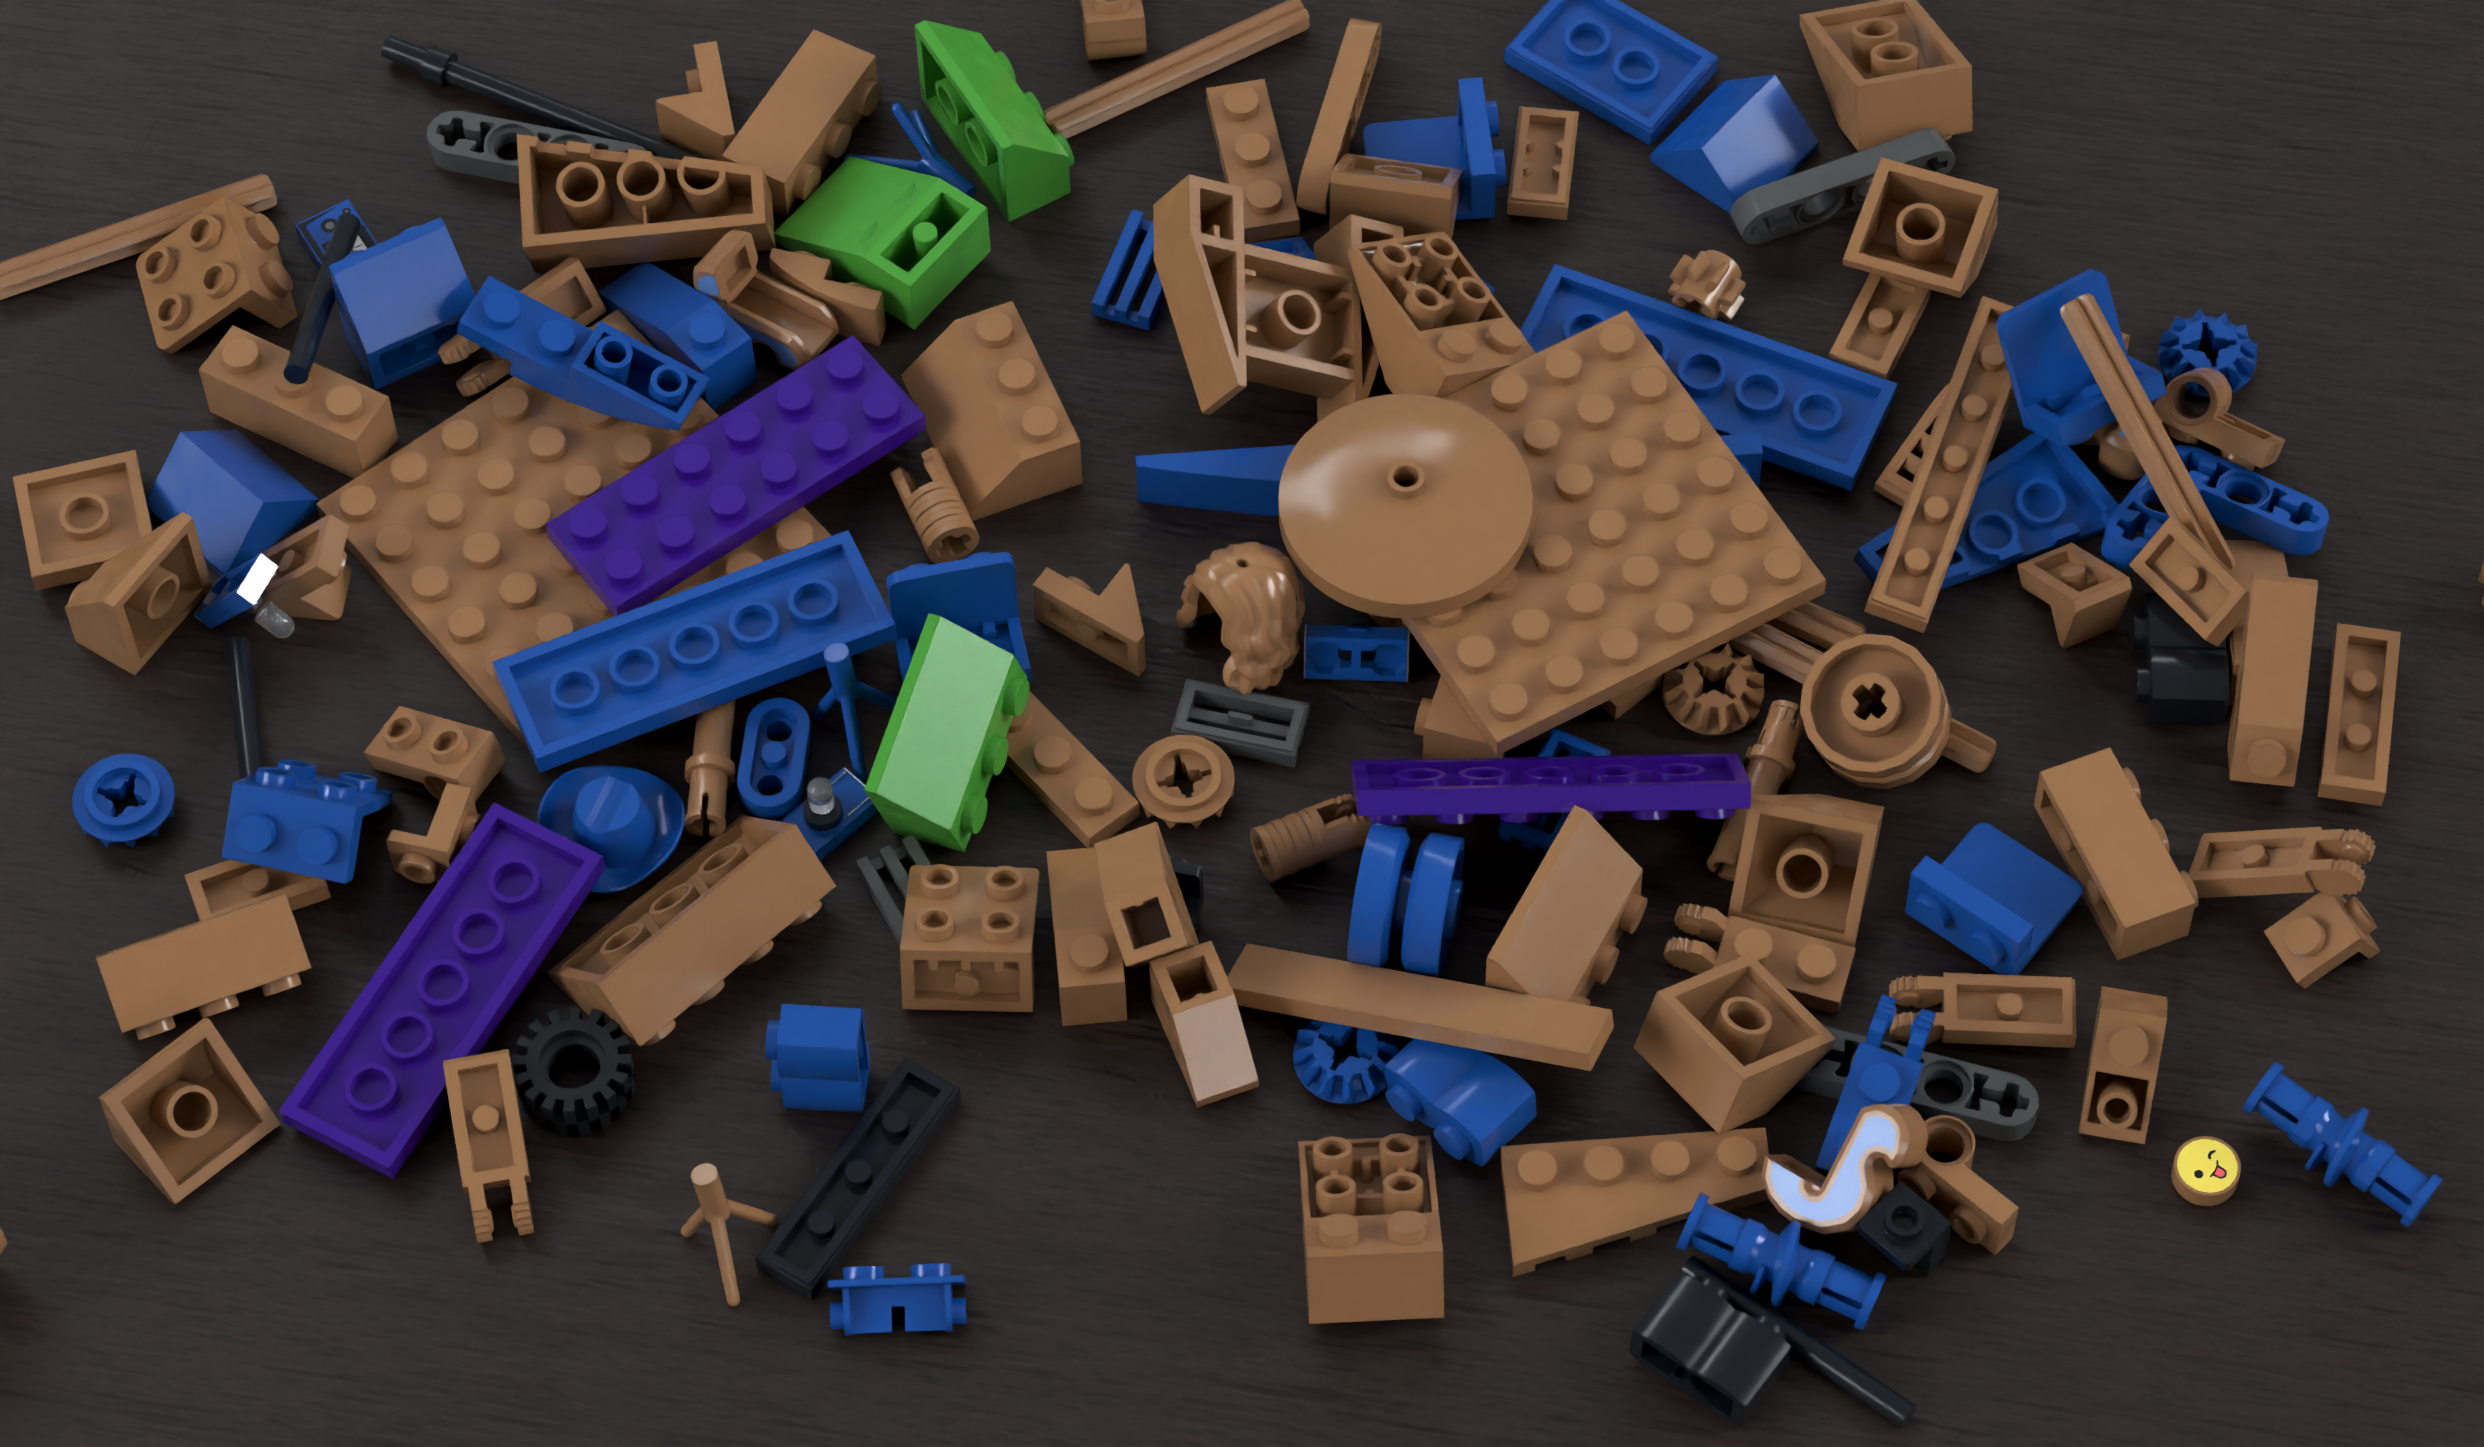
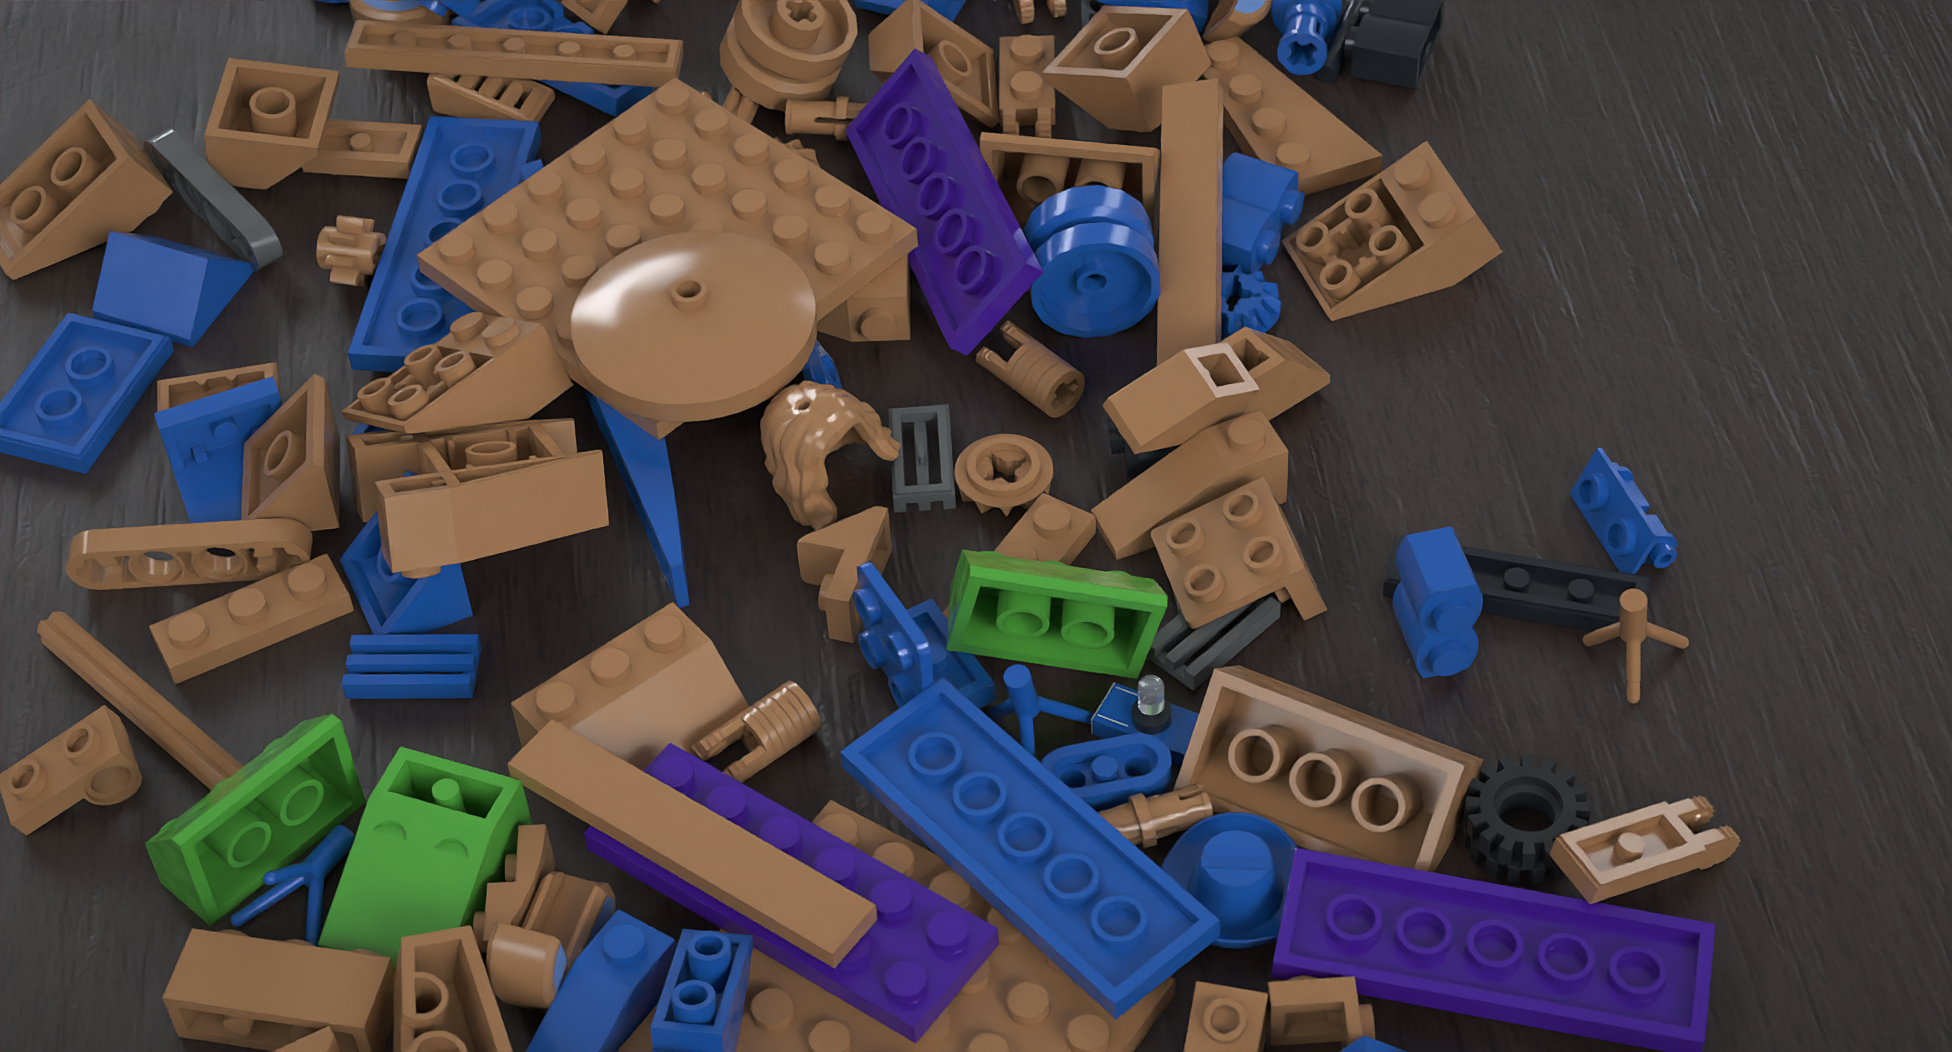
camera: 105 degrees left, 10 degrees down
(786, 392) = (694, 843): none -> medium nougat tile

